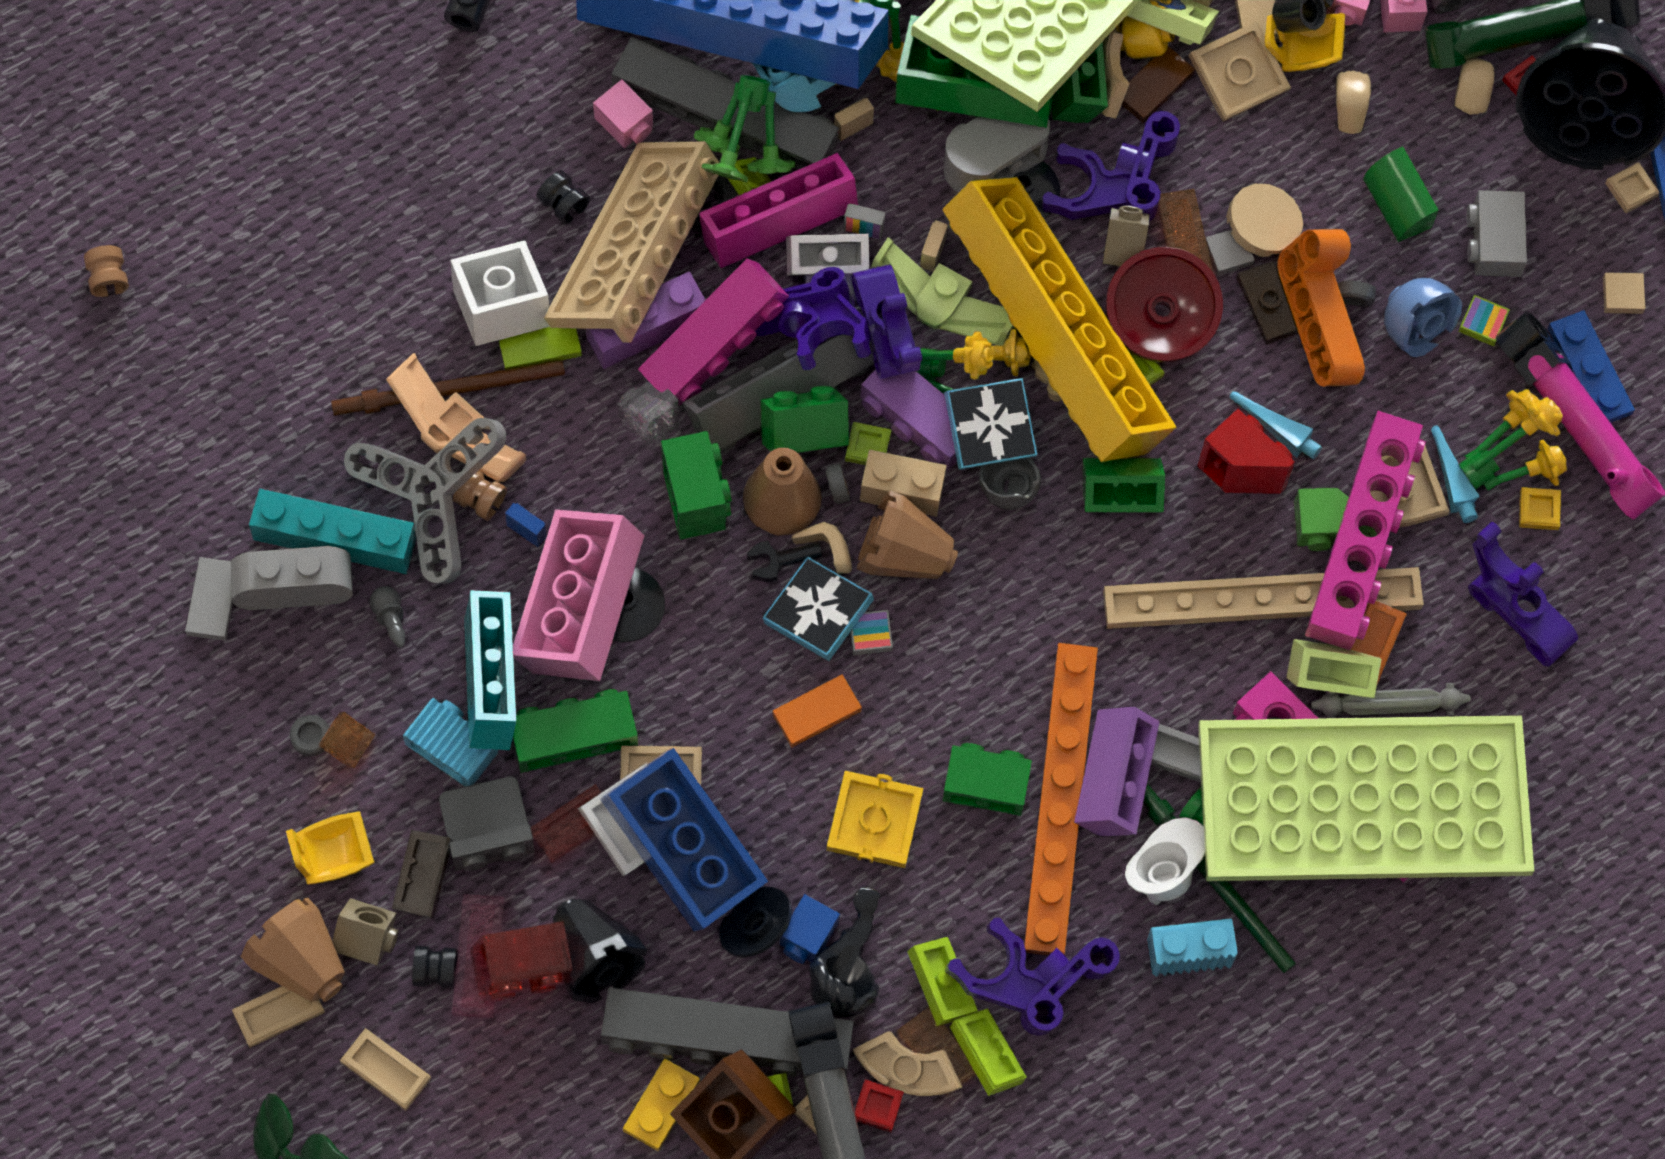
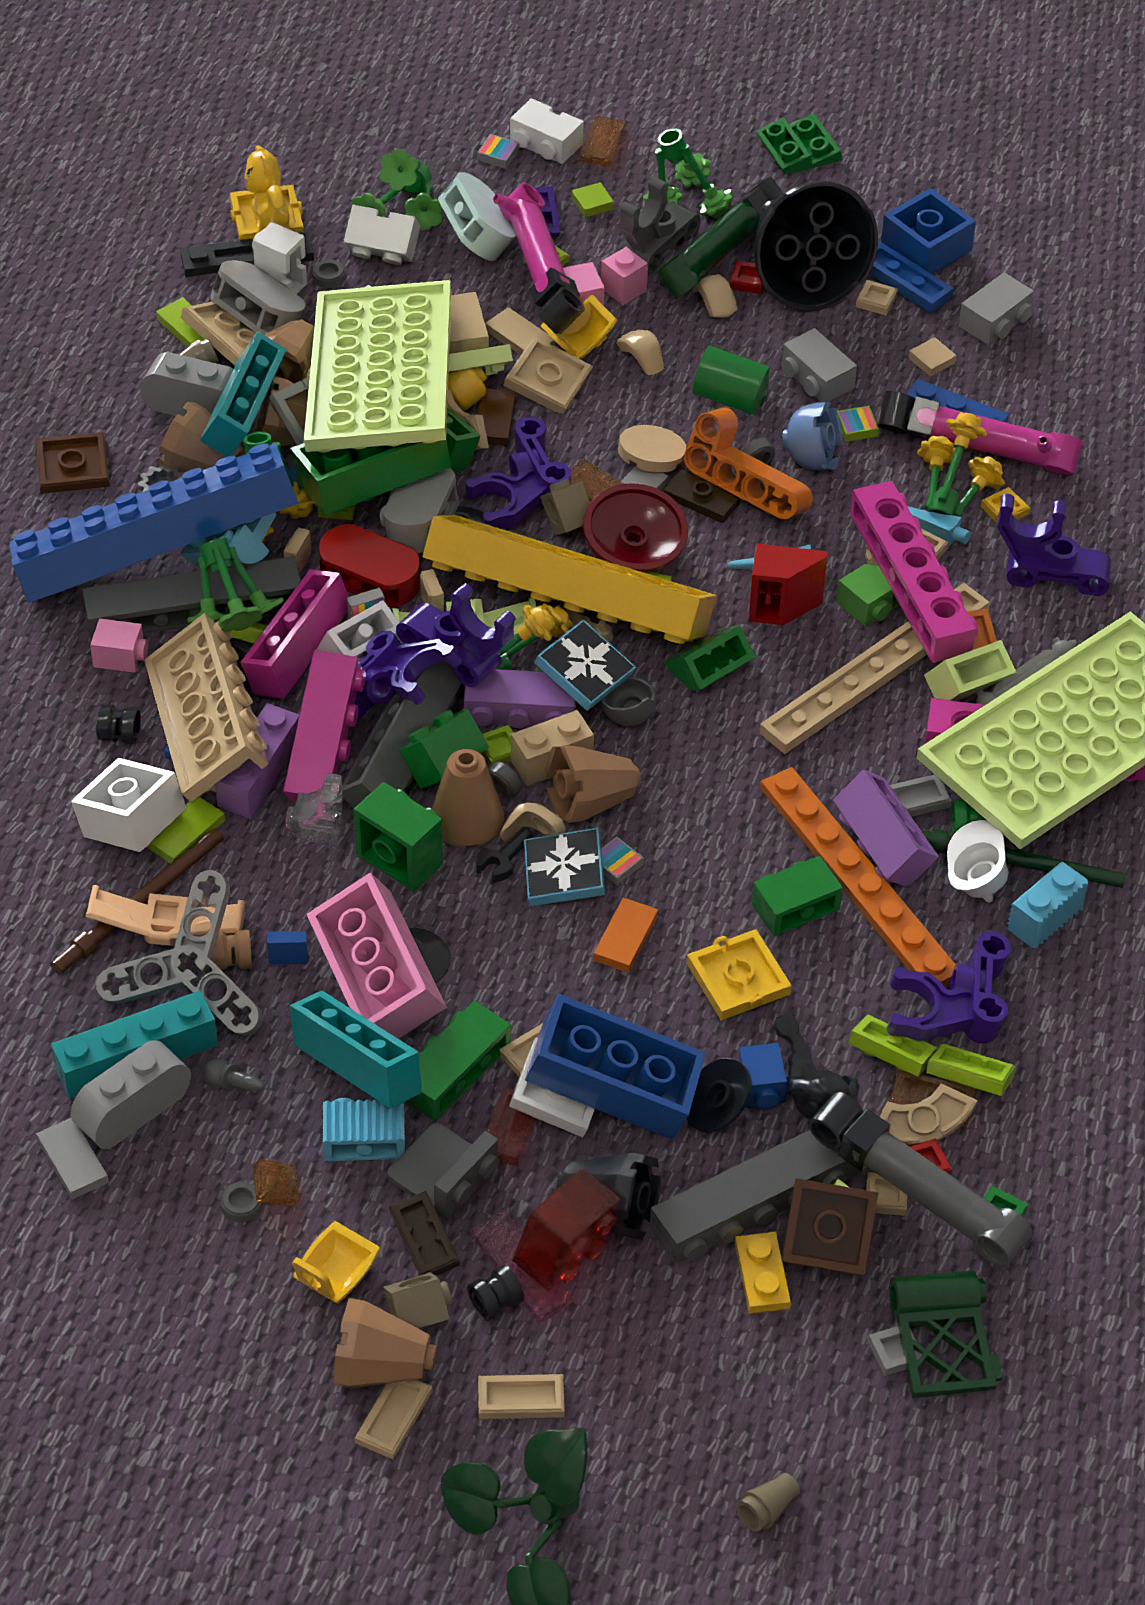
camera: 35 degrees left, 20 degrees down
(905, 176) = (371, 563): none -> red brick

